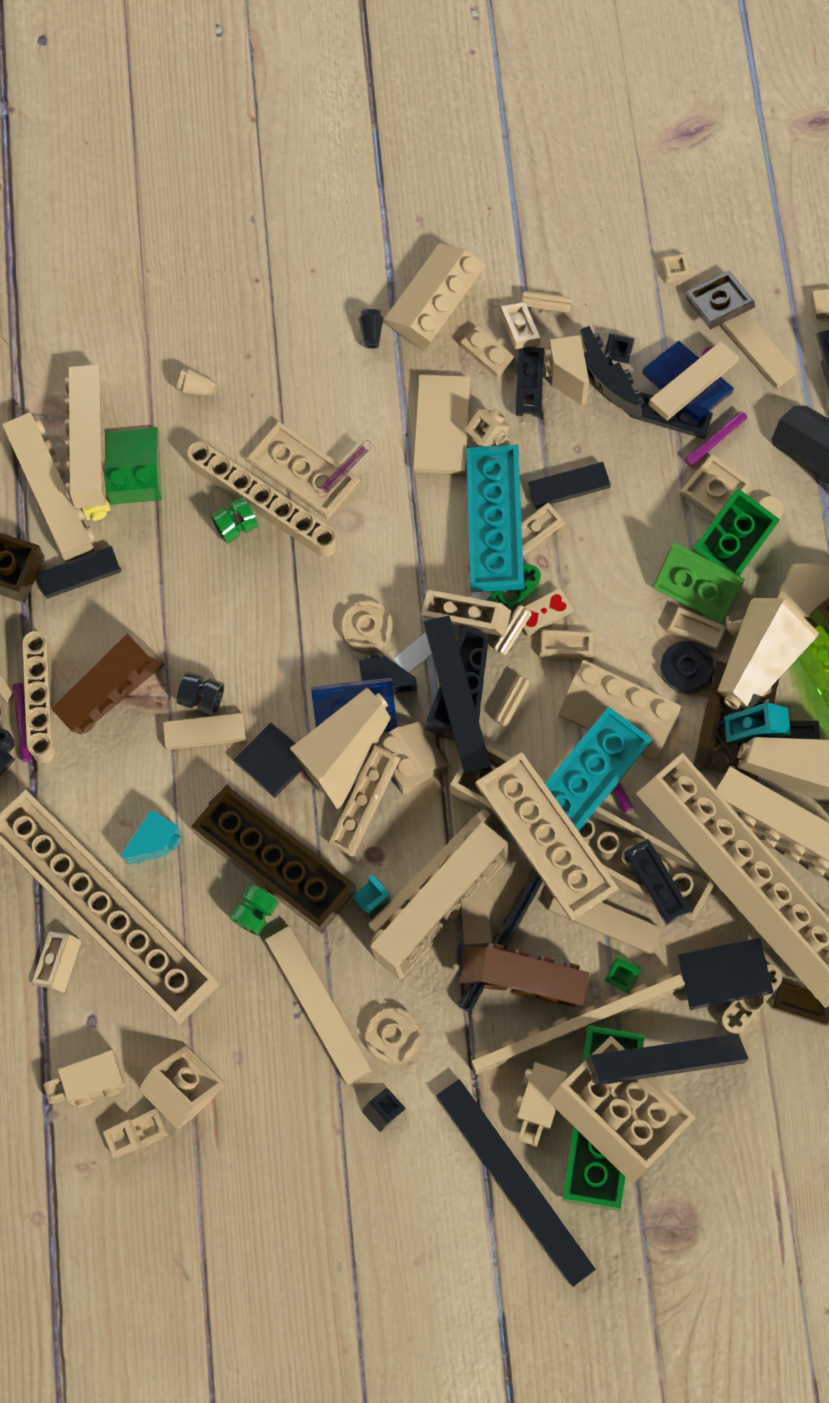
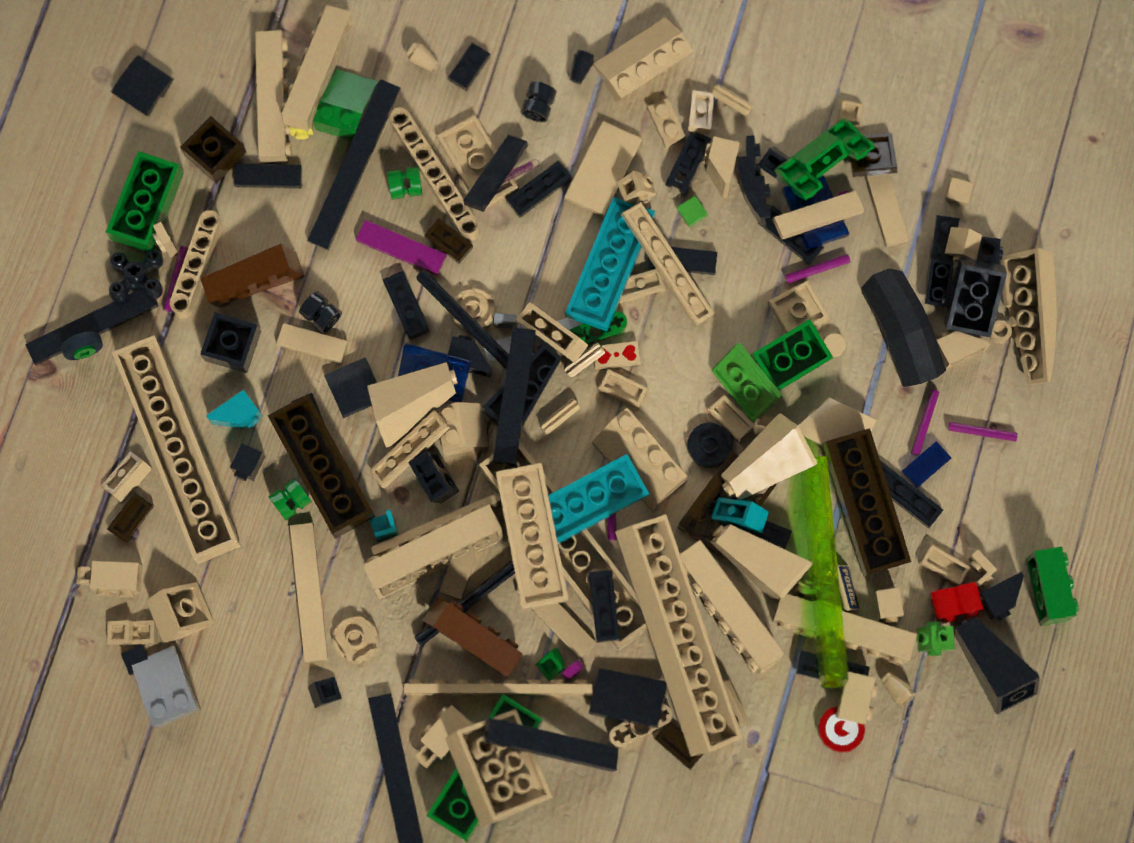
camera: 20 degrees right, 5 degrees up
(80, 1004) = (130, 517): none -> dark brown tile
(114, 765) = (230, 342): none -> black brick
(153, 1162) = (133, 657): none -> black tile
(170, 522) = (354, 164): none -> black tile
(188, 889) = (247, 463): none -> black brick
(199, 1179) = (165, 687): none -> light grey slope
(250, 374) = (469, 66): none -> black plate
(259, 591) = (401, 247): none -> magenta tile
(291, 650) = (406, 305): none -> black tile
(308, 563) = (448, 241): none -> dark brown plate
(329, 471) = (495, 173): none -> black tile
(342, 380) = (539, 98): none -> black wheel
(363, 637) = (463, 317): none -> black axle
(381, 471) = (539, 189): none -> black tile
(404, 820) = (434, 477): none -> black brick
(408, 622) = (505, 320): none -> light grey tile
(556, 431) = (692, 211): none -> bright green tile
(557, 494) = (667, 264): none -> tan tile
(650, 968) = (573, 670): none -> magenta tile
(668, 318) = (820, 155): none -> green bracket

